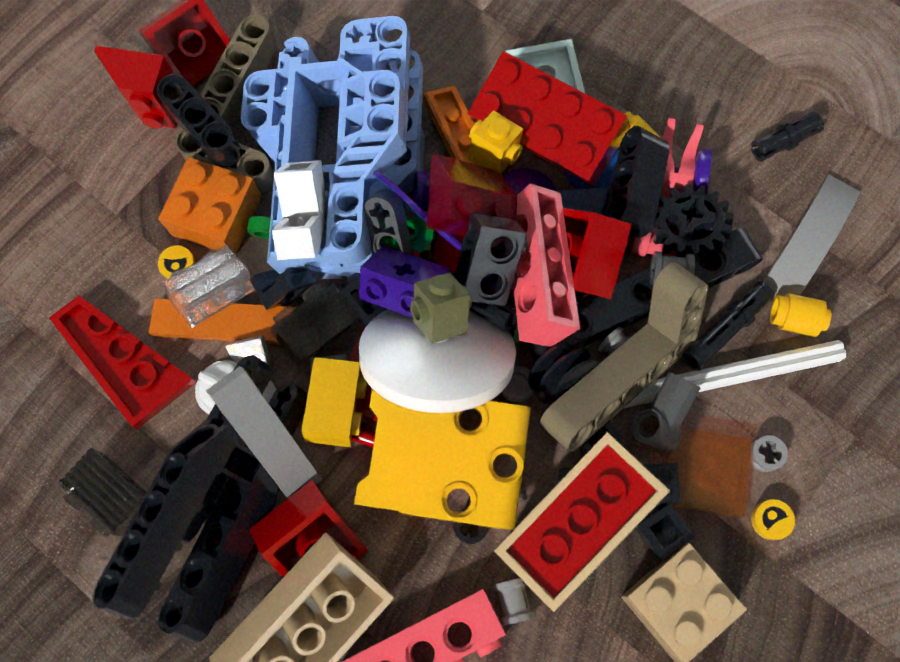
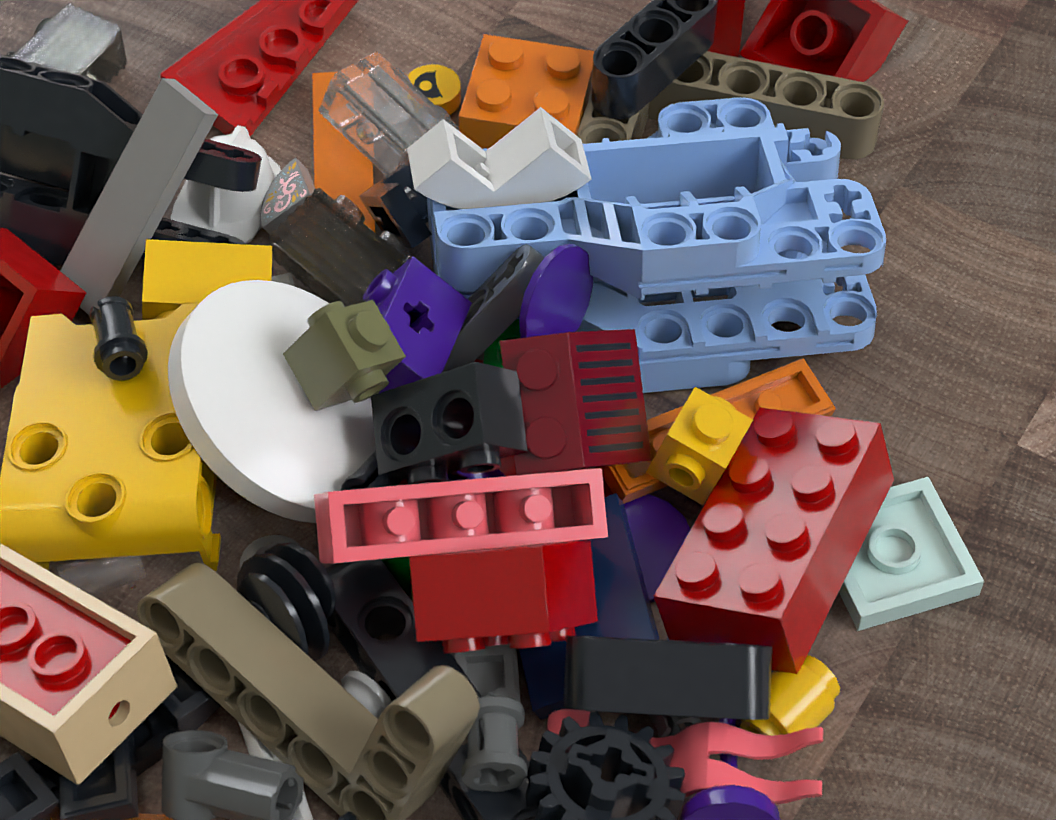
camera: 75 degrees right, 20 degrees down
(398, 444) = (118, 348): none -> black pin

